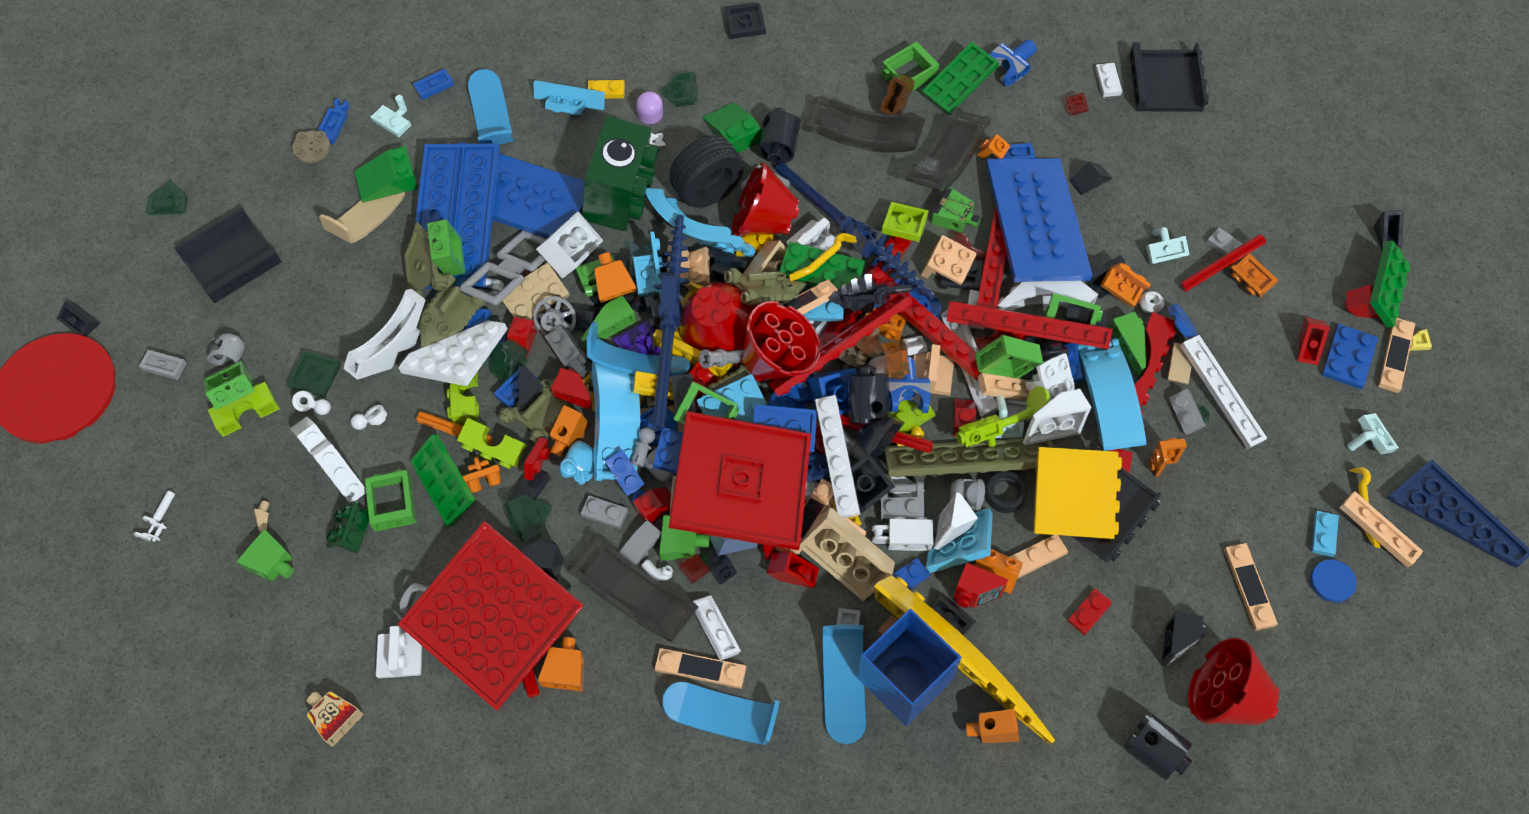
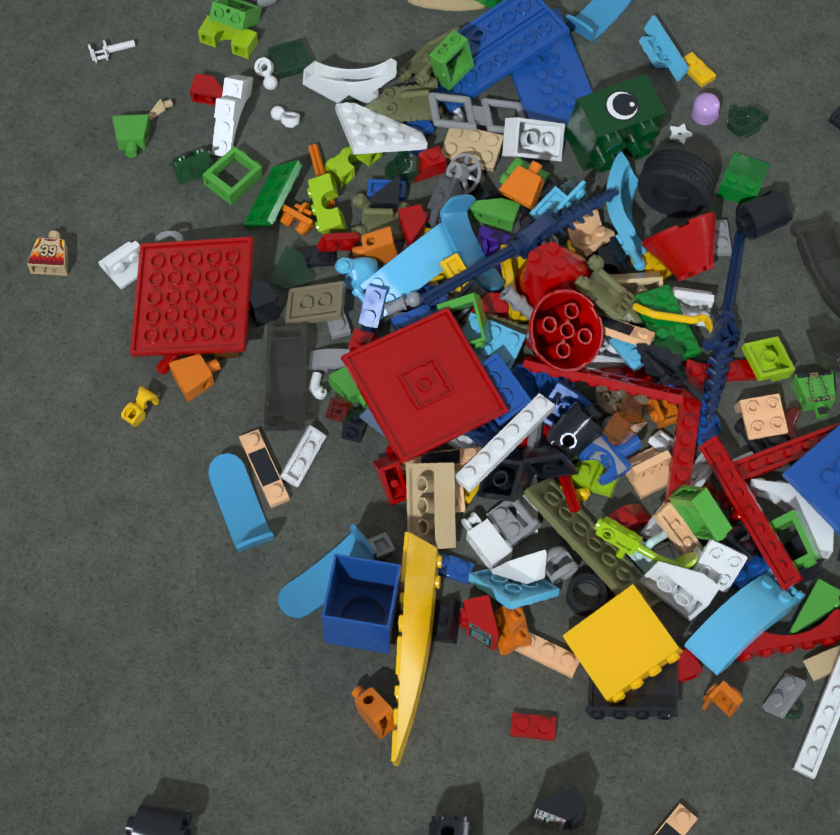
camera: 50 degrees right, 0 degrees up
(285, 462) = (205, 89): none -> red slope
(559, 743) = (134, 412): none -> yellow leg
(580, 517) = (316, 303): none -> dark tan plate

